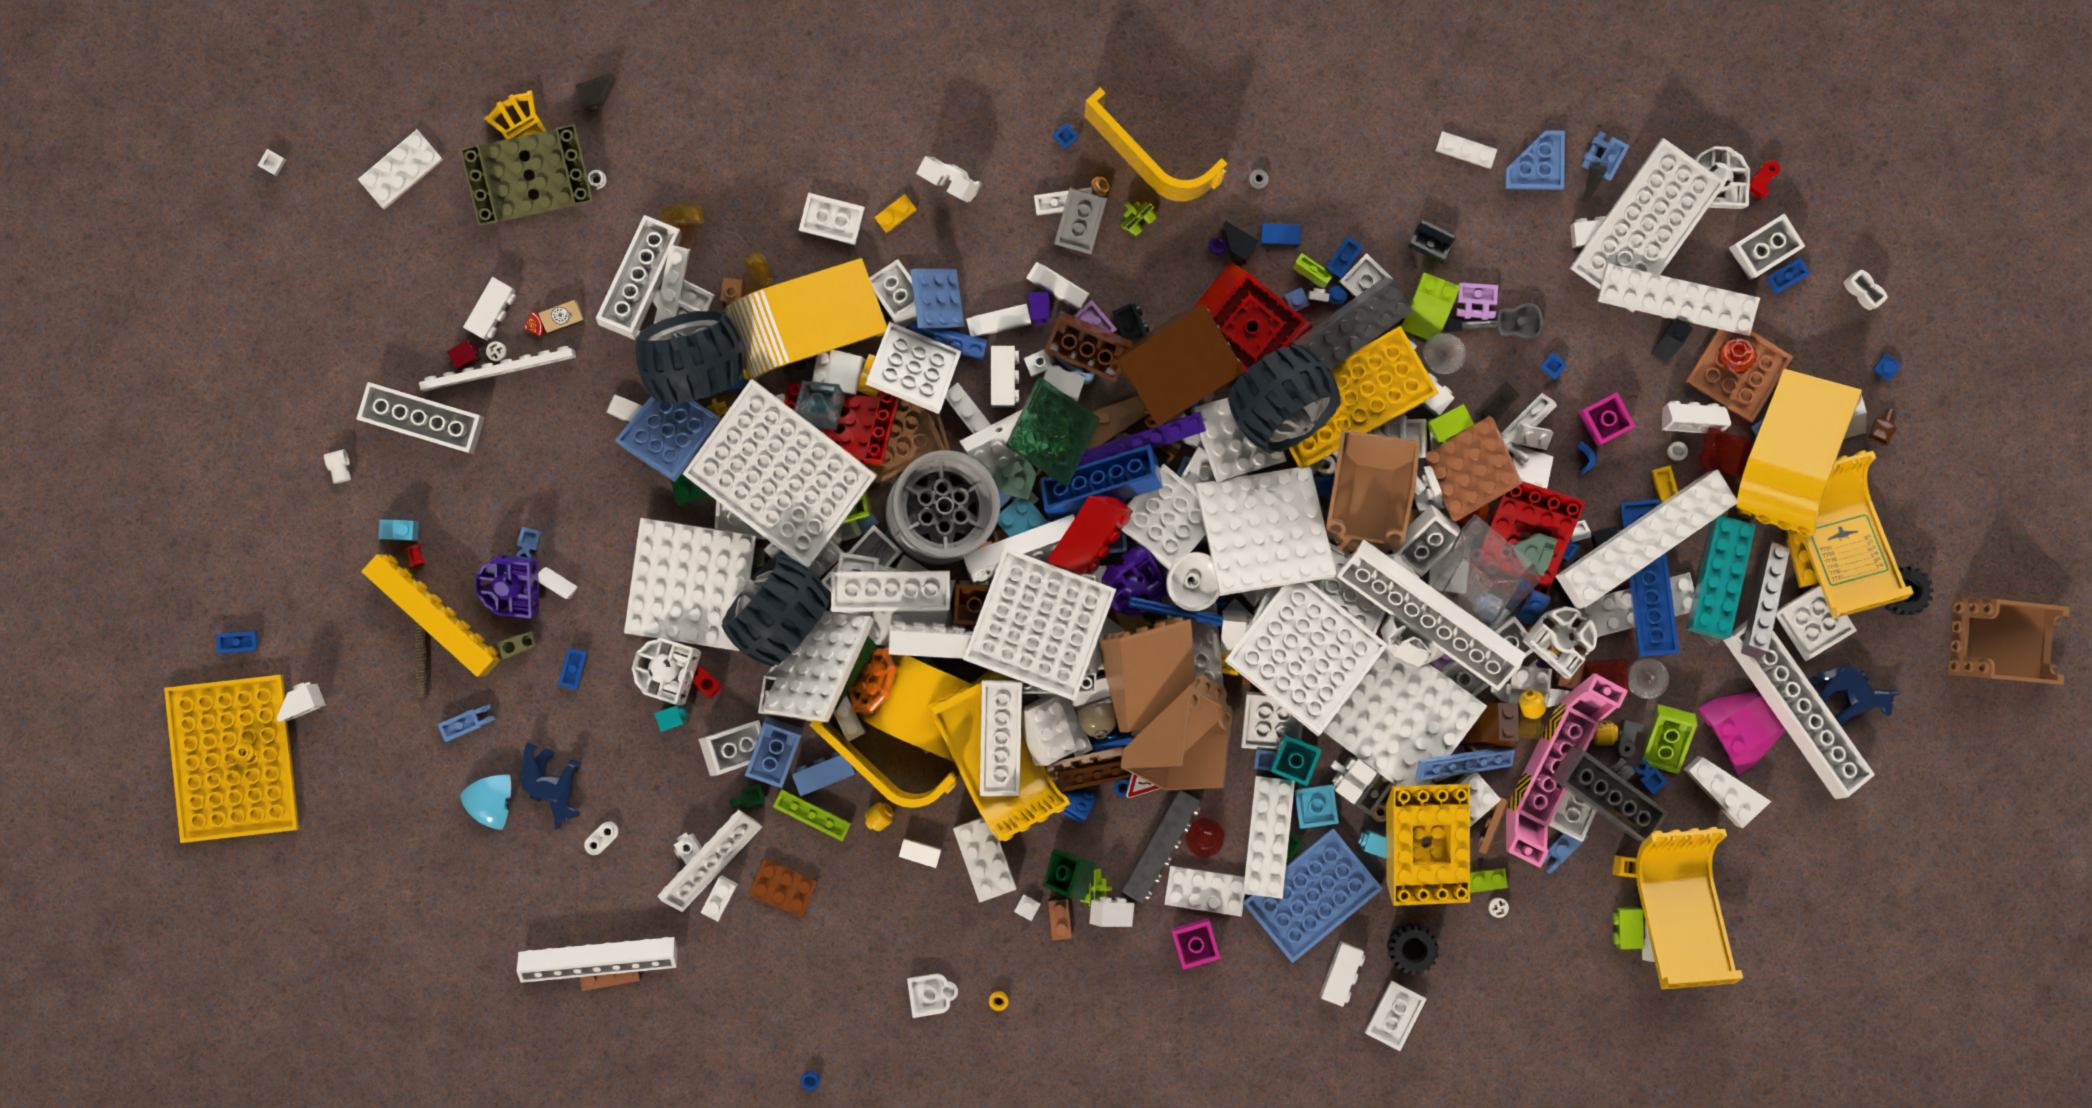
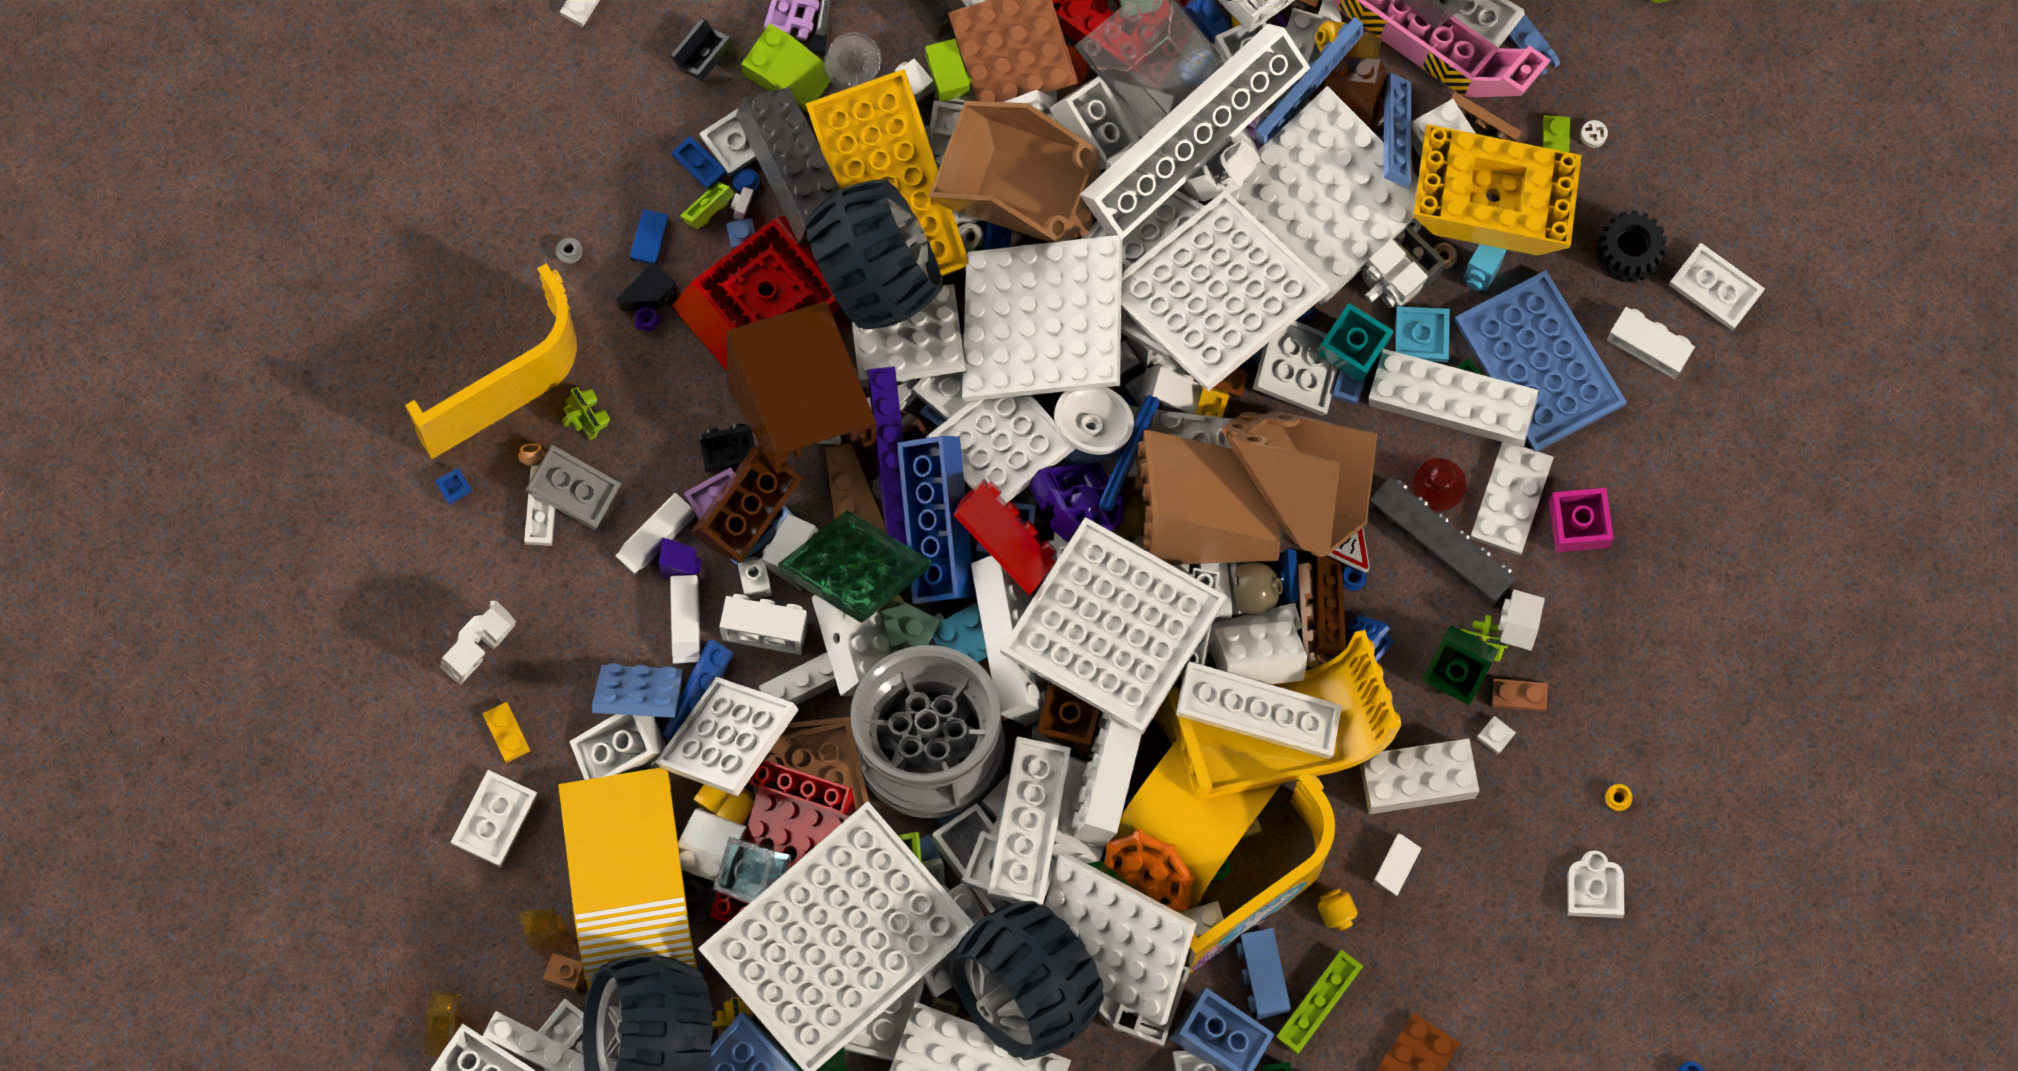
camera: 80 degrees left, 15 degrees down
(1480, 686) = (1303, 88): none -> medium blue plate

